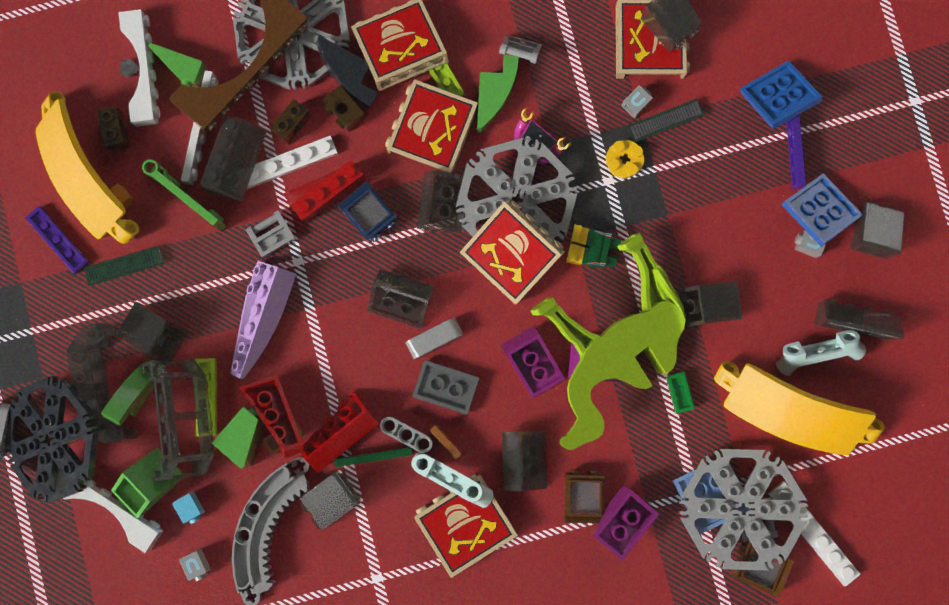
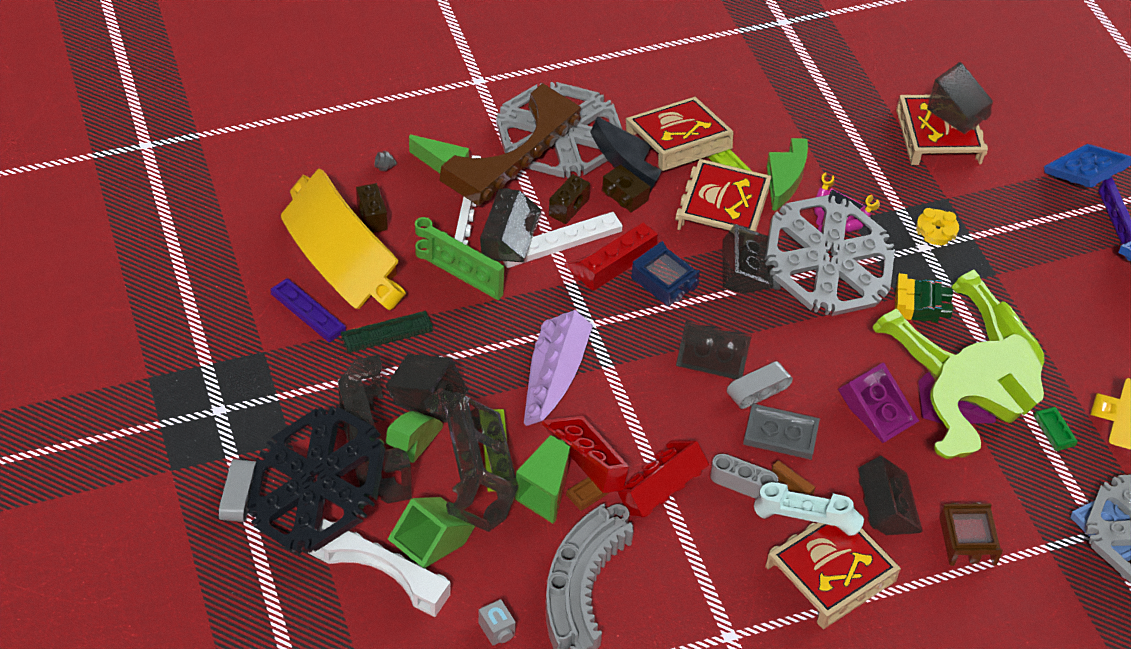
camera: 10 degrees left, 35 degrees down
(143, 105) = (403, 187): white arch -> none
(189, 508) = (484, 561): medium azure brick -> none
(272, 239) = (559, 301): light grey plate -> none
(330, 500) = (664, 541): clear smoke slope -> none
(375, 456) = (707, 501): dark green tile -> none
(512, 251) = (834, 296): panel -> none
(520, 48) = (815, 138): light grey plate -> none
(624, 522) = (1029, 544): magenta slope -> none
(637, 101) = (938, 177): light grey brick -> none
(665, 120) = (973, 194): tile -> none
(711, 303) = (1068, 342): clear smoke slope -> none

